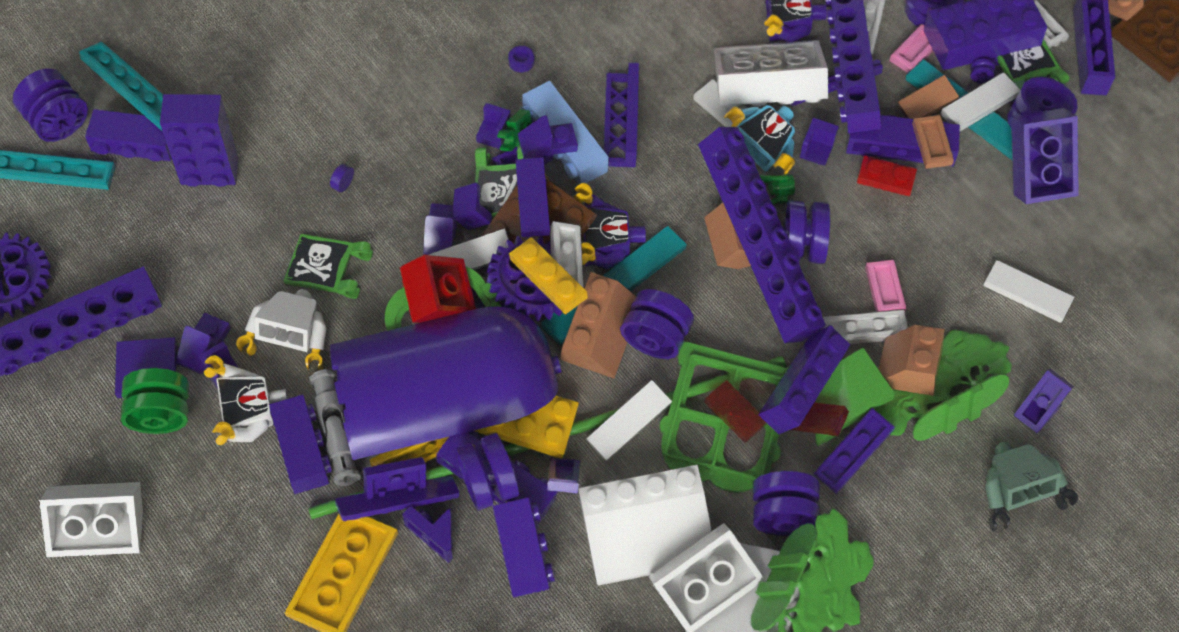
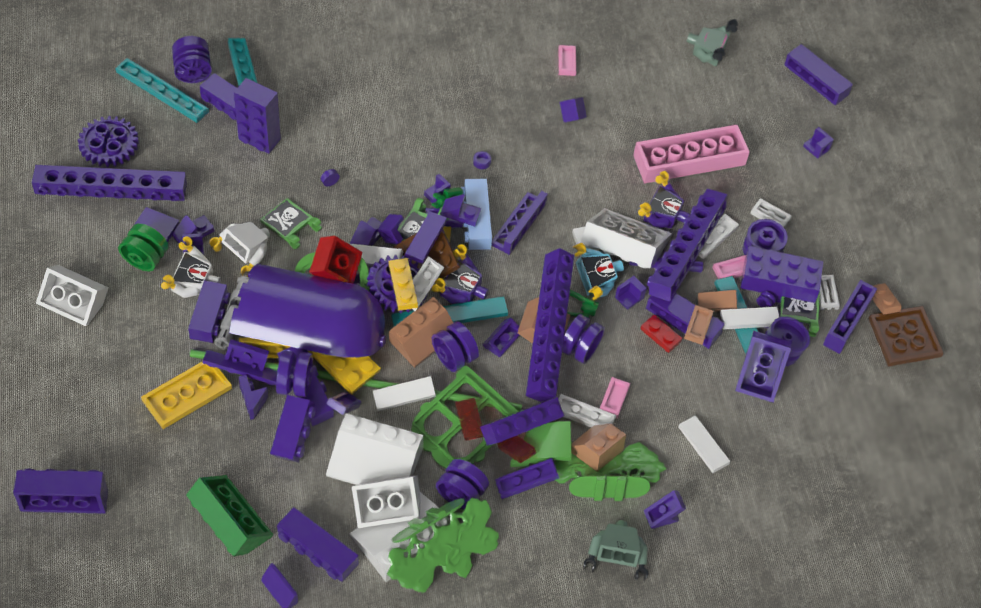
camera: 25 degrees right, 5 degrees down
(699, 280) = (502, 337): none -> dark purple slope

